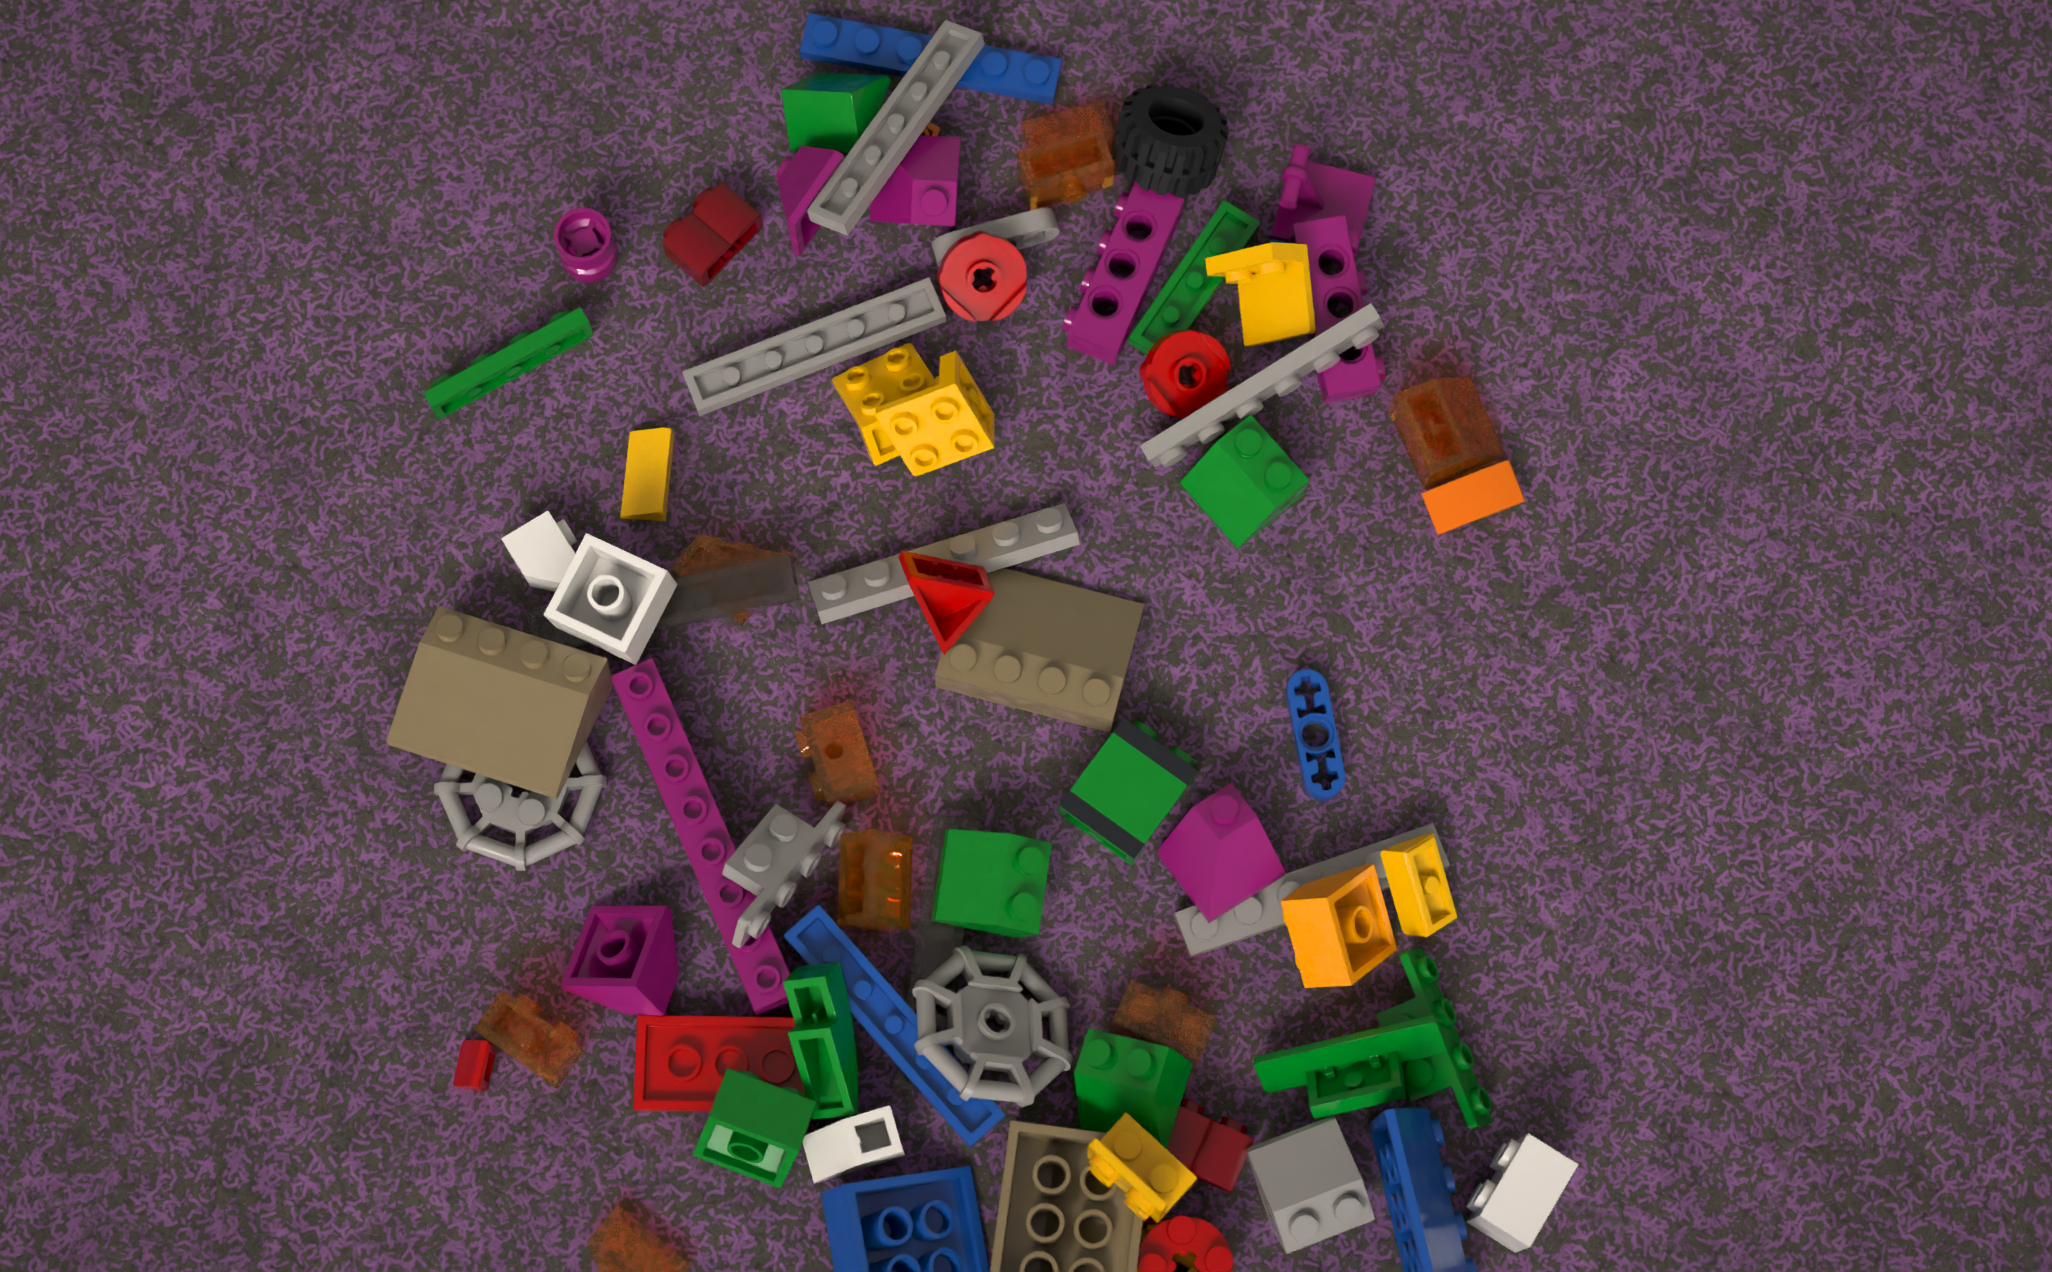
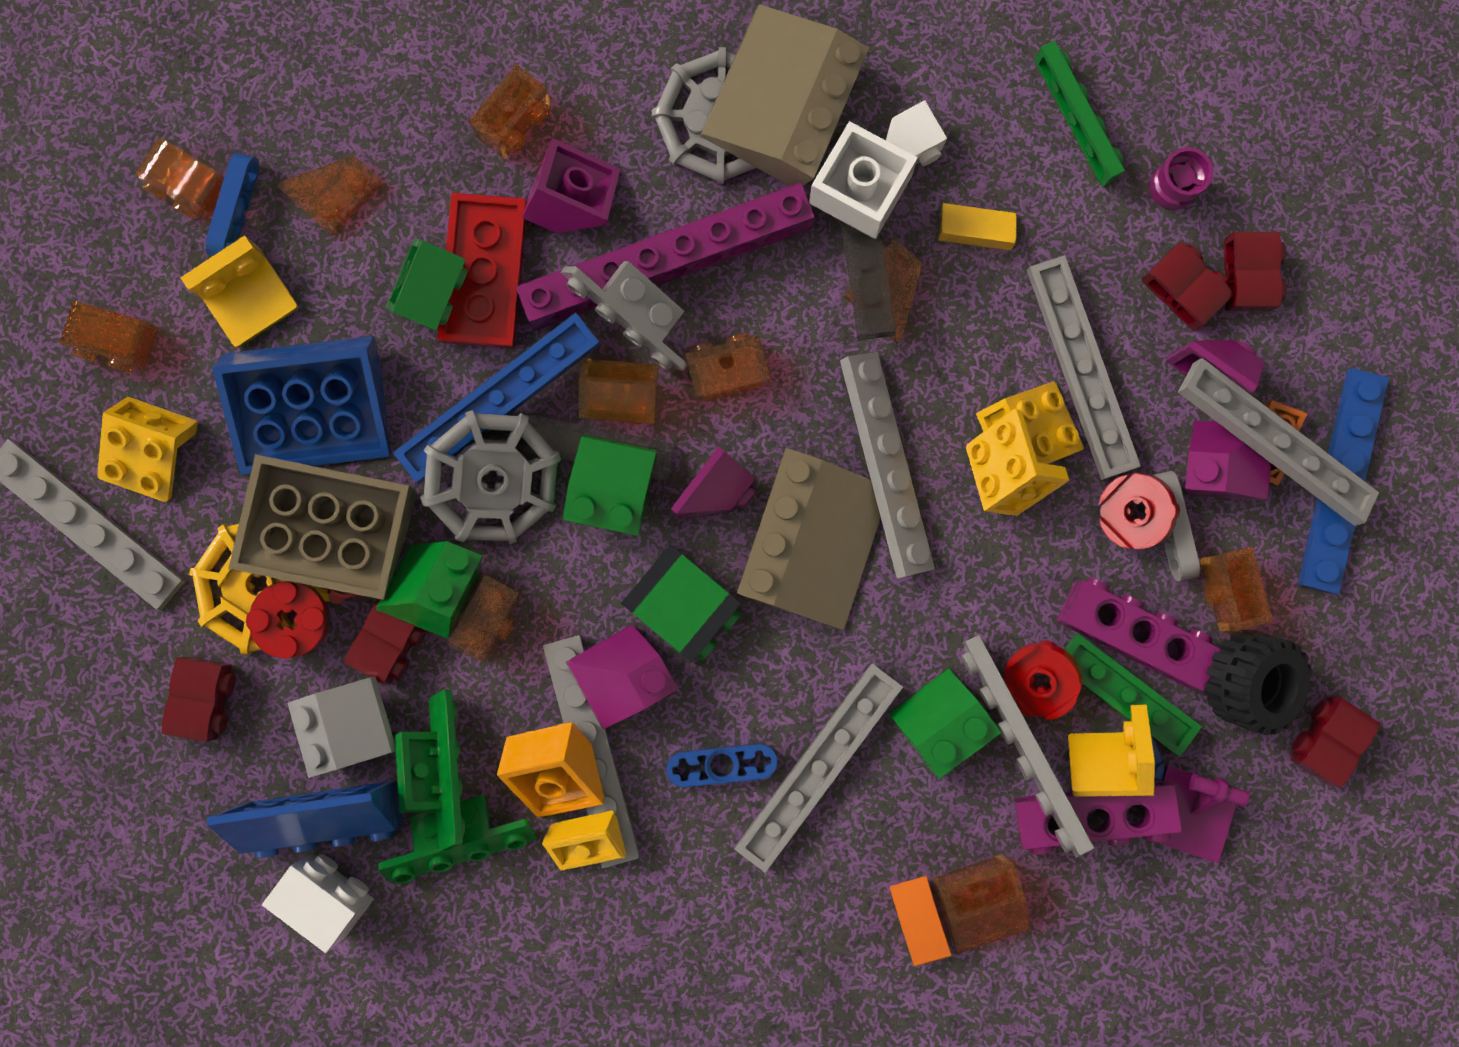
camera: 90 degrees right, 10 degrees up
(475, 1065) = (491, 72): red slope -> none
(690, 162) = (1254, 271): none -> dark red brick
(823, 1038) = (489, 340): green slope -> none
(832, 109) = (1298, 390): green slope -> none
(853, 1144) = (408, 365): white slope -> none
(947, 593) = (854, 460): red slope -> none
(987, 758) = (715, 489): none -> magenta slope
(1067, 123) = (1277, 595): clear orange plate -> none
(1140, 1168) = (350, 584): yellow bracket -> none
(1228, 59) = (1334, 741): none -> dark red brick
(1308, 622) = (818, 767): none -> light grey plate

